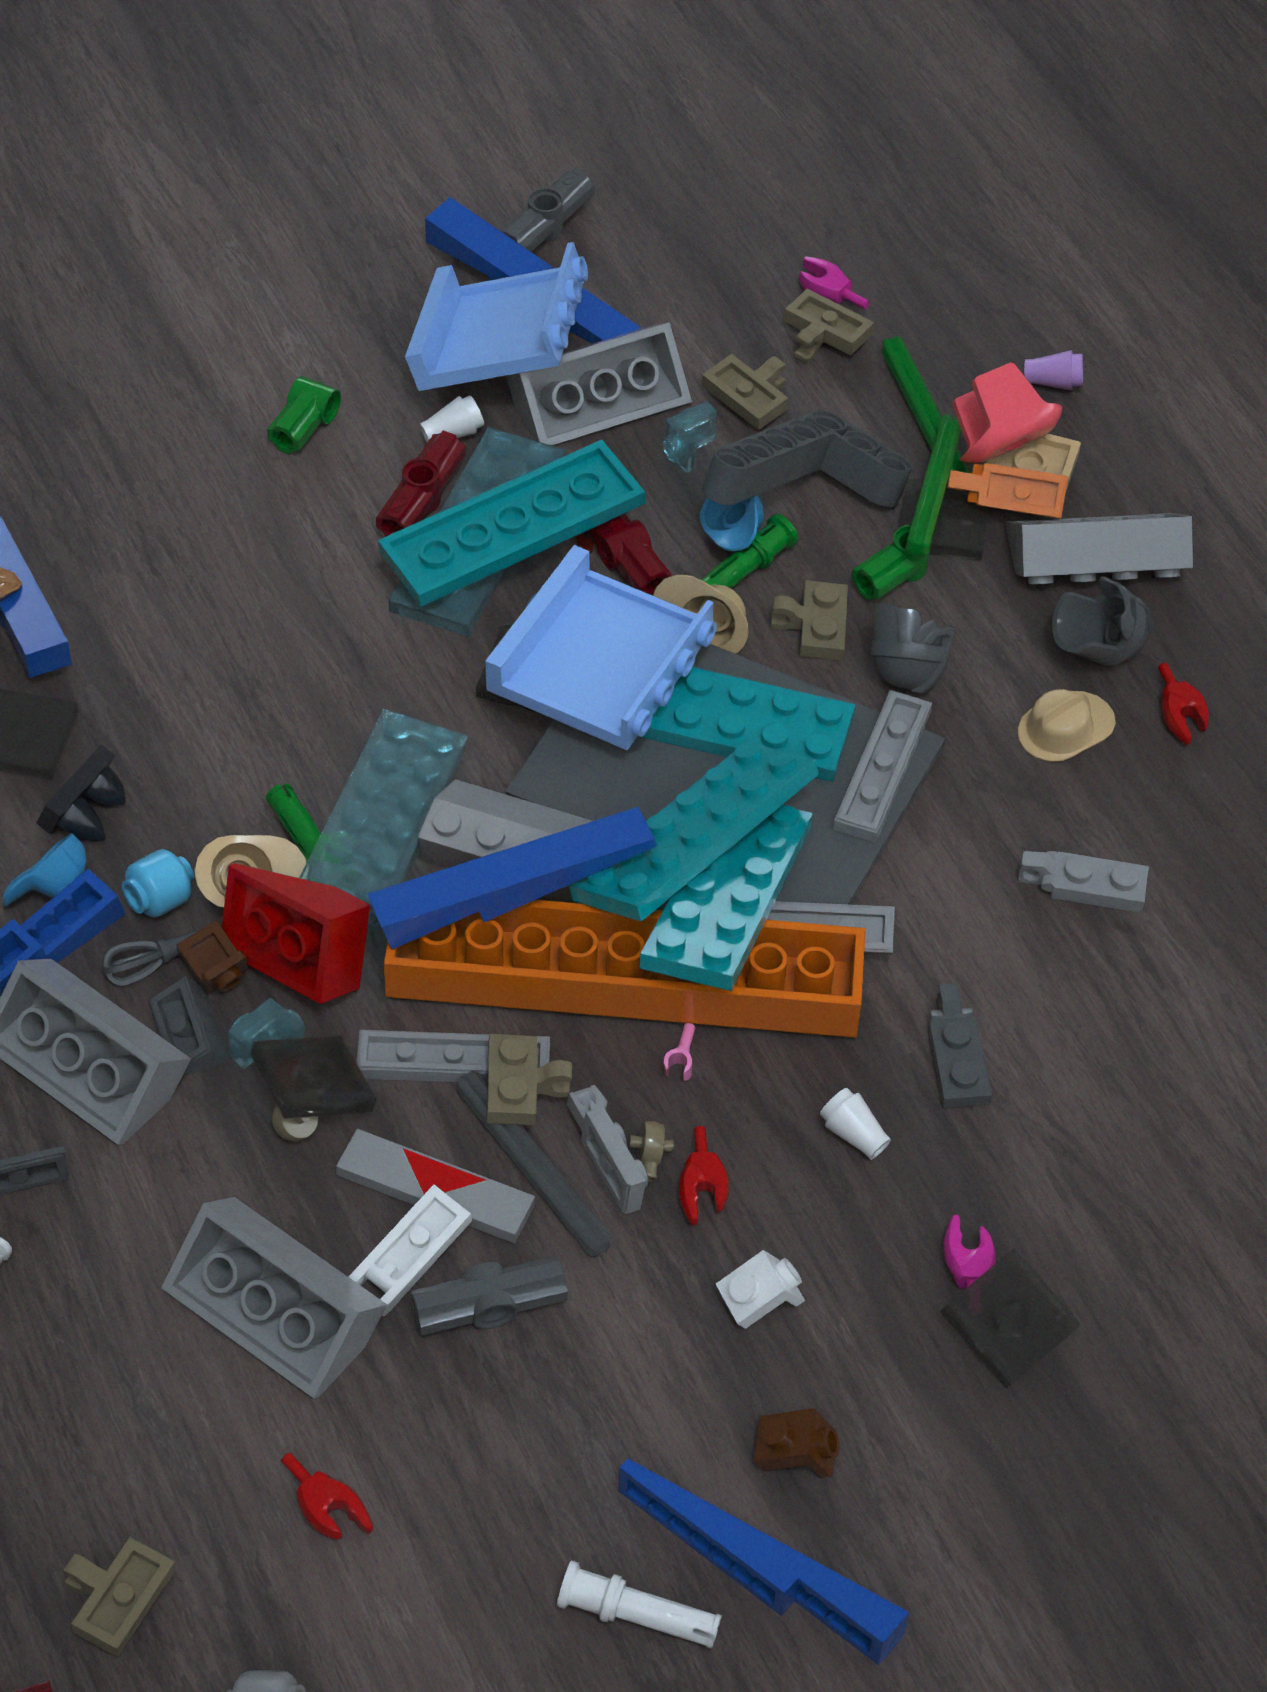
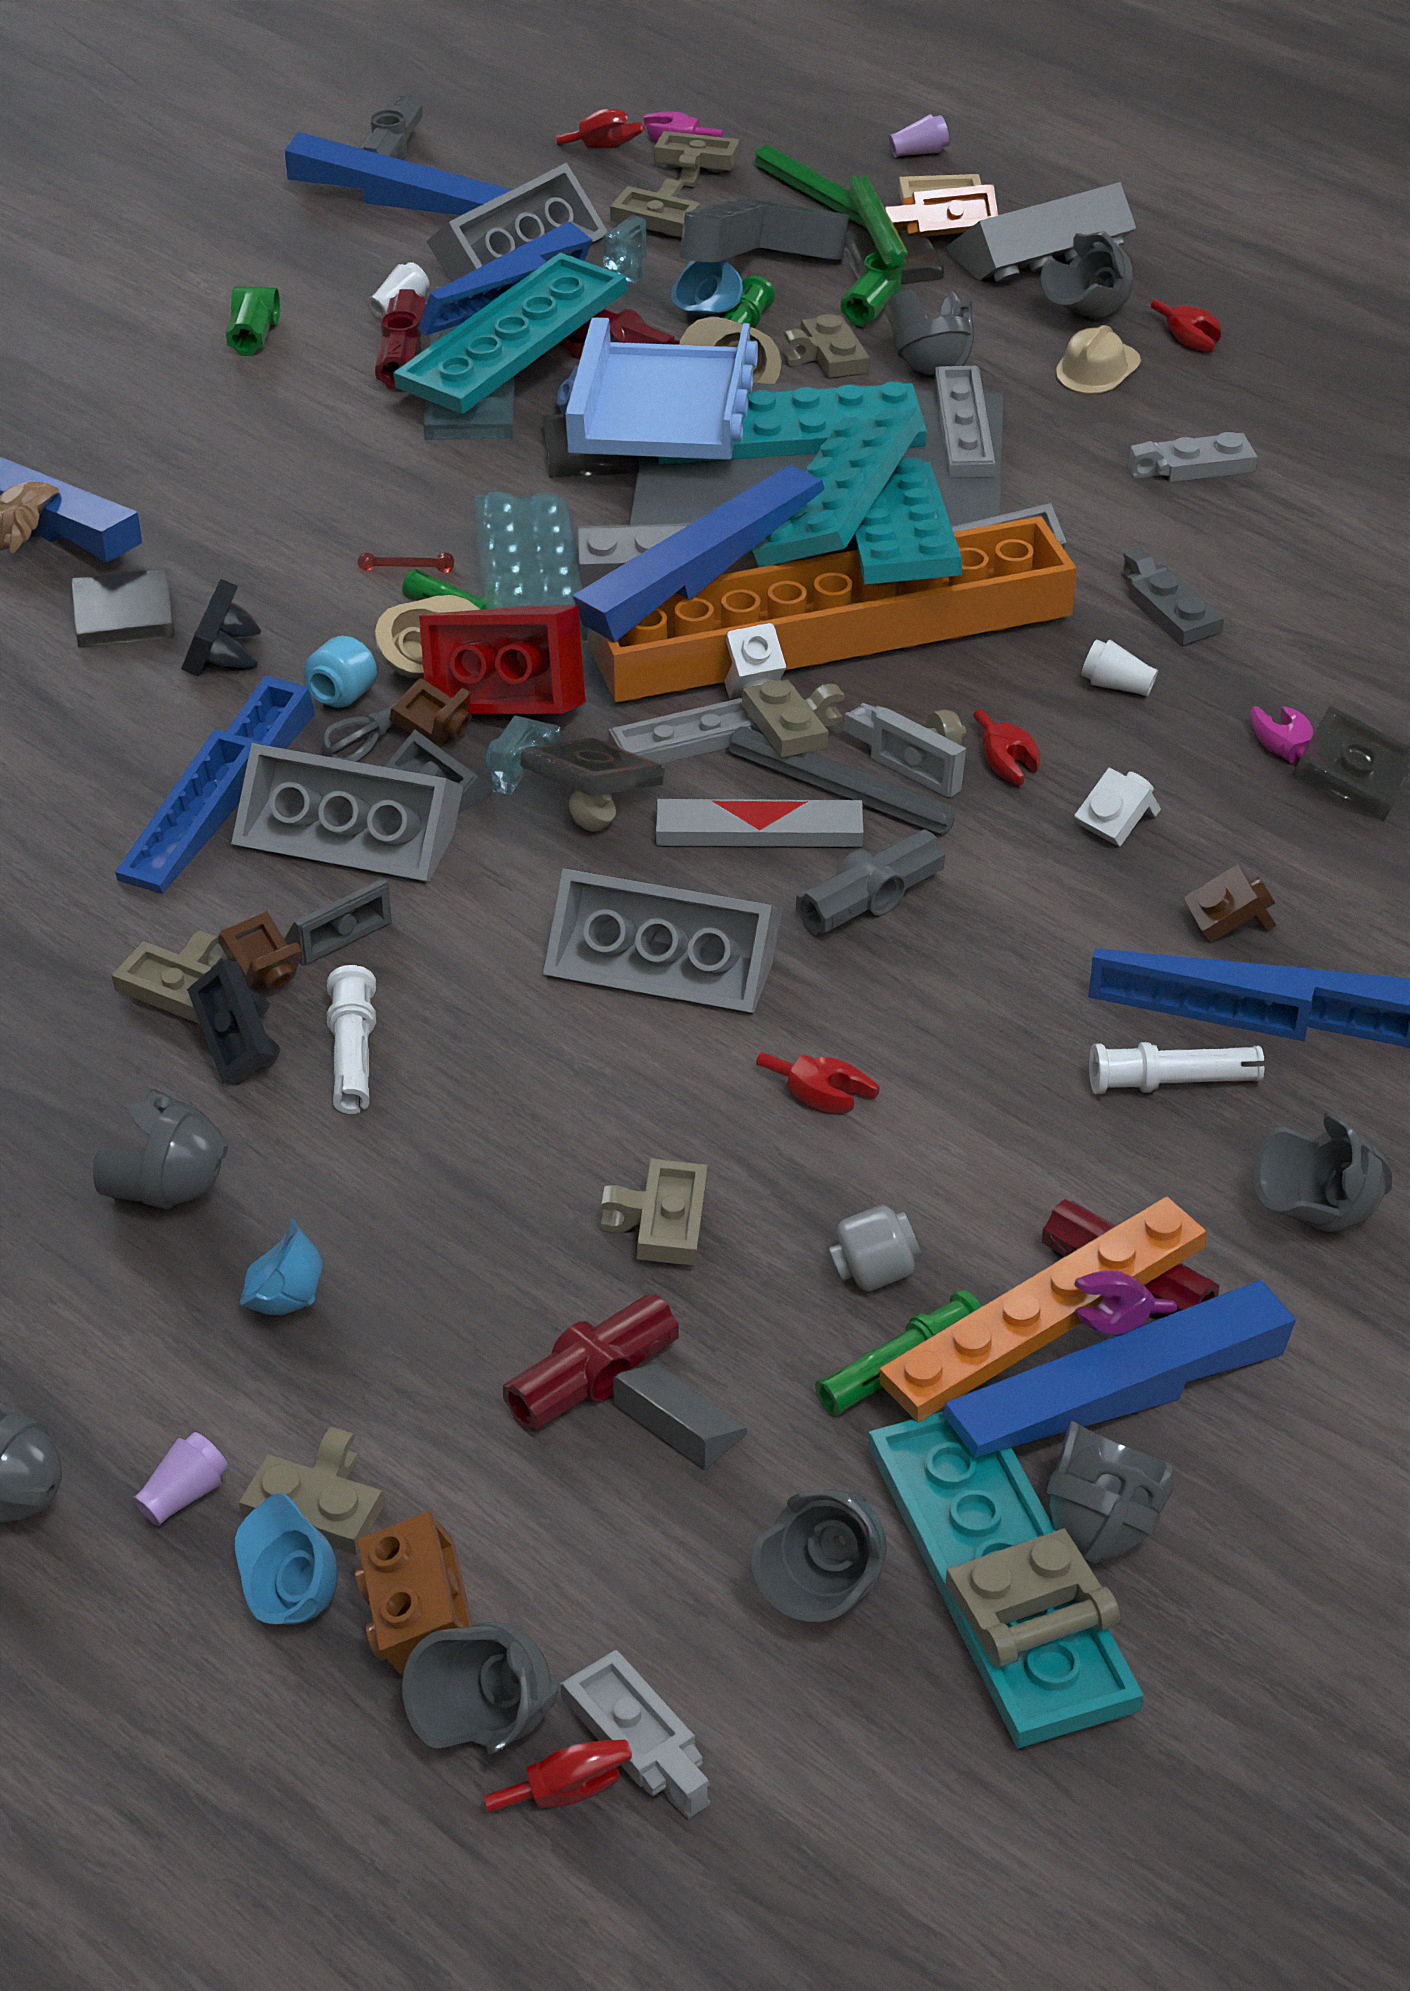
camera: 20 degrees left, 10 degrees down
(51, 872) = (227, 690): dark azure piece -> none
(323, 773) = (443, 562): none -> clear red hinge
(413, 1246) = (776, 859): white hinge -> none
(495, 324) = (408, 203): light blue panel -> none
(516, 1003) = (754, 657): none -> white bracket
(617, 425) = (472, 292): none -> blue slope
(682, 1053) = (924, 668): bright pink hand -> none
(753, 267) = (603, 129): none -> red hand
(1002, 414) = (916, 162): coral piece -> none

